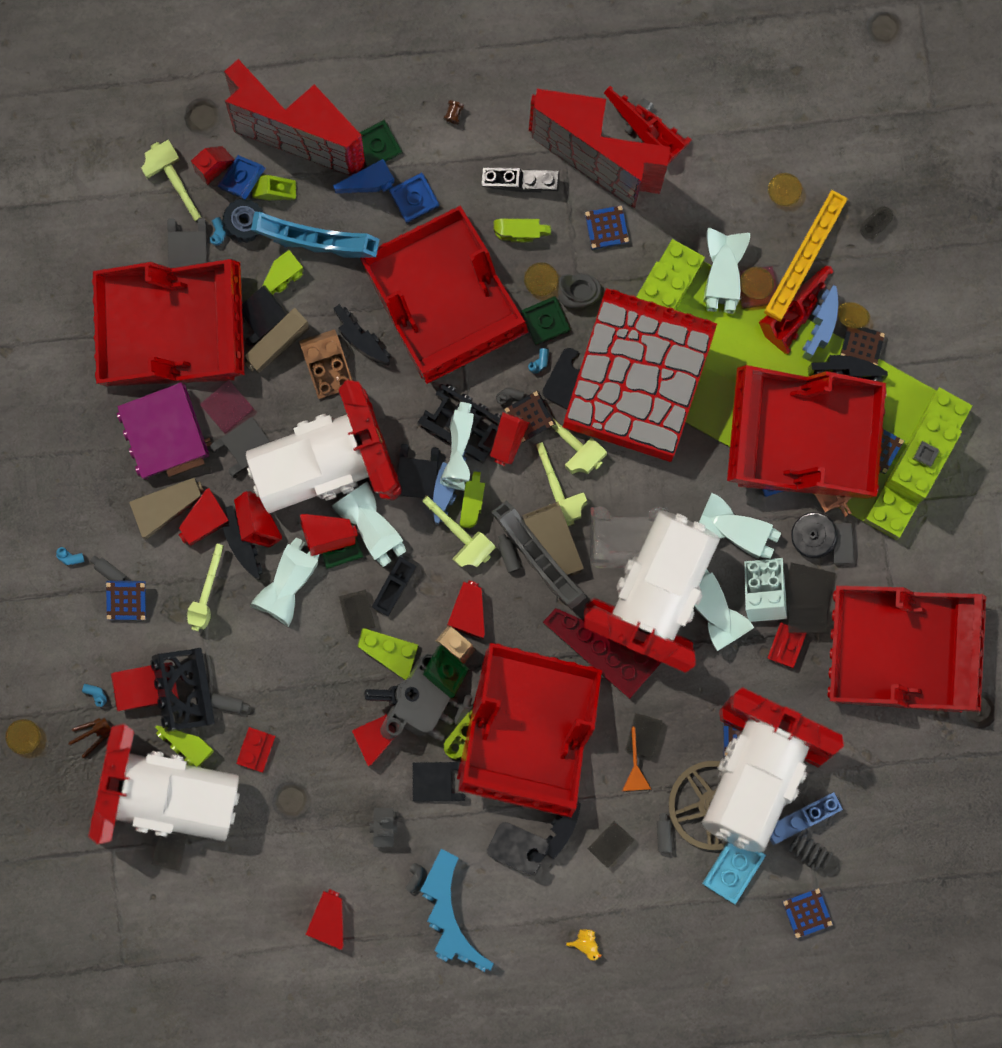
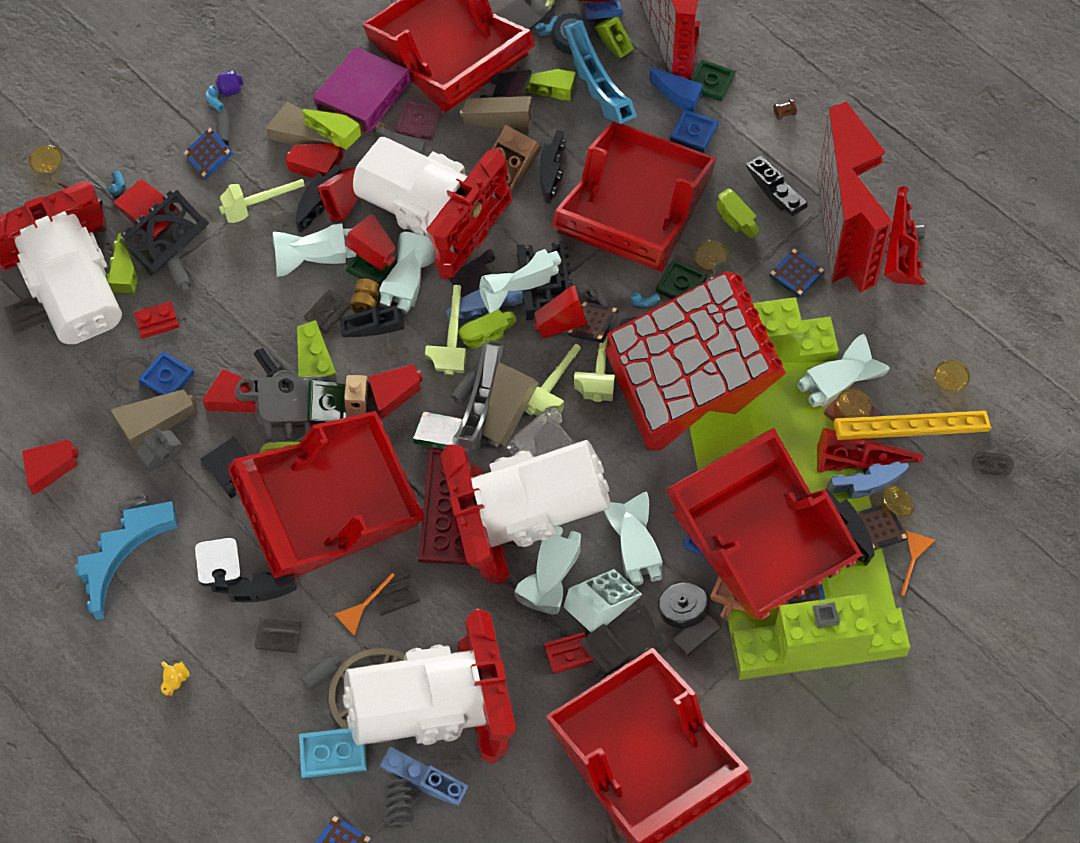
camera: 60 degrees right, 20 degrees down
(65, 533) = (229, 83): none -> dark purple head
(193, 482) = (337, 127): none -> lime slope
(315, 777) = (166, 375): none -> blue tile
(348, 813) = (146, 416): none -> dark tan slope
(368, 573) = (365, 295): none -> pearl gold wheel
(532, 605) = (436, 430): none -> tile
(893, 329) = (917, 545): none -> orange piece

